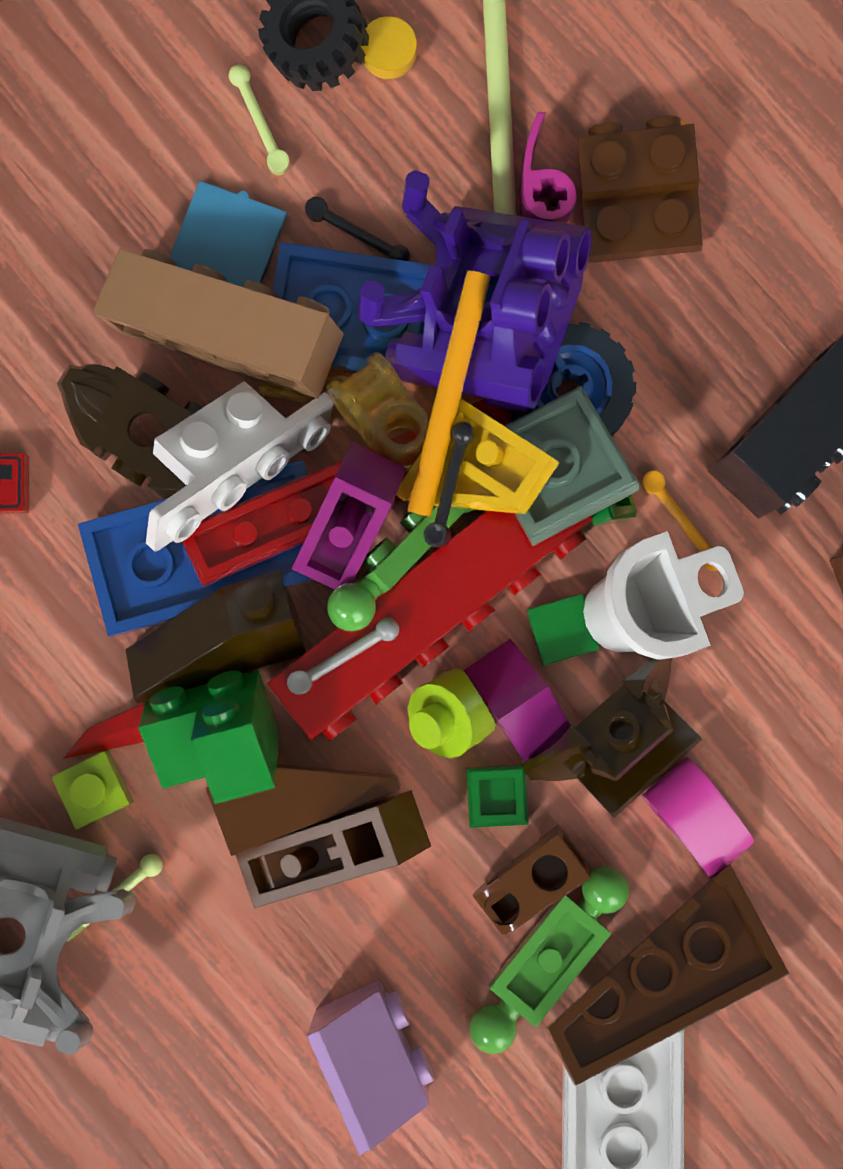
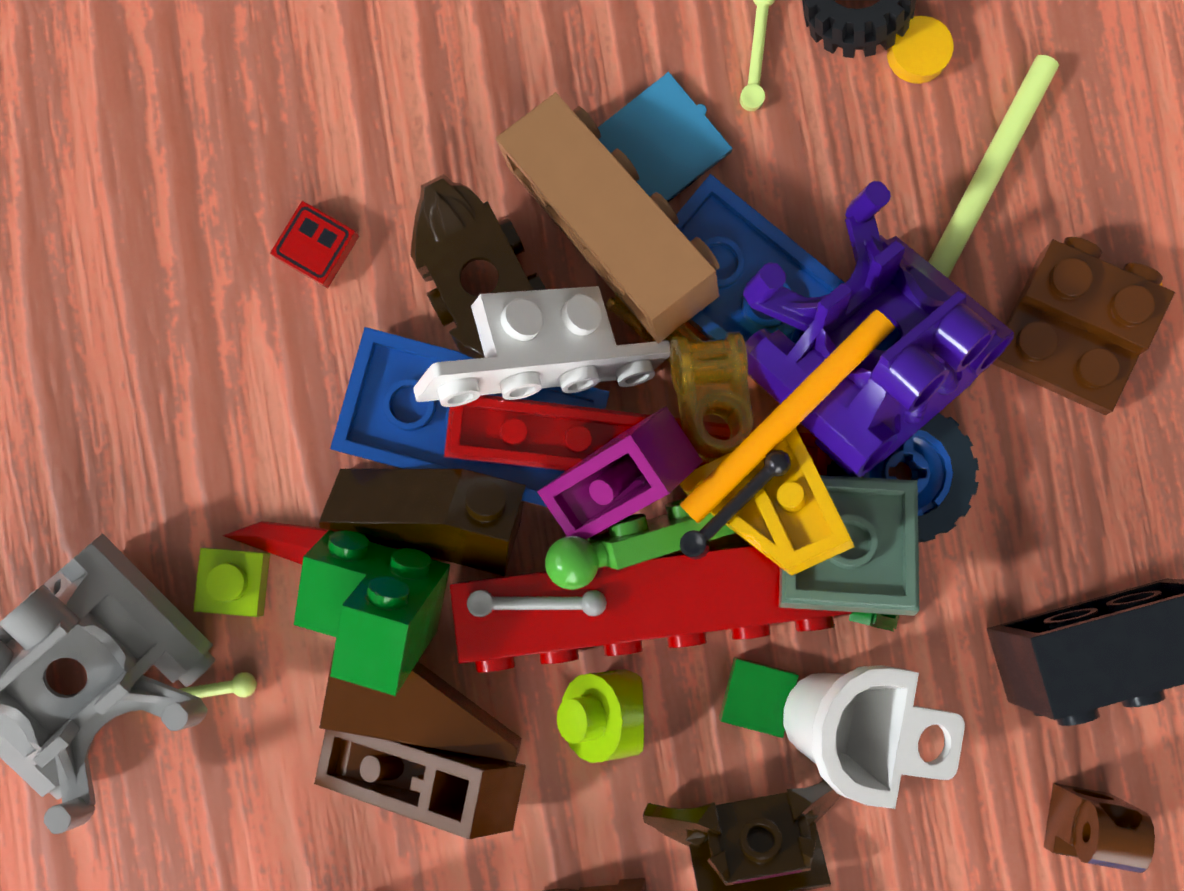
camera: 35 degrees right, 0 degrees up
(317, 211) = (762, 164): black hinge -> none
(497, 796) = (603, 817): green tile -> none
(518, 700) = (678, 741): magenta slope -> none
(544, 183) = (1002, 270): dark pink panel -> none
(653, 484) = (929, 610): light orange hinge -> none

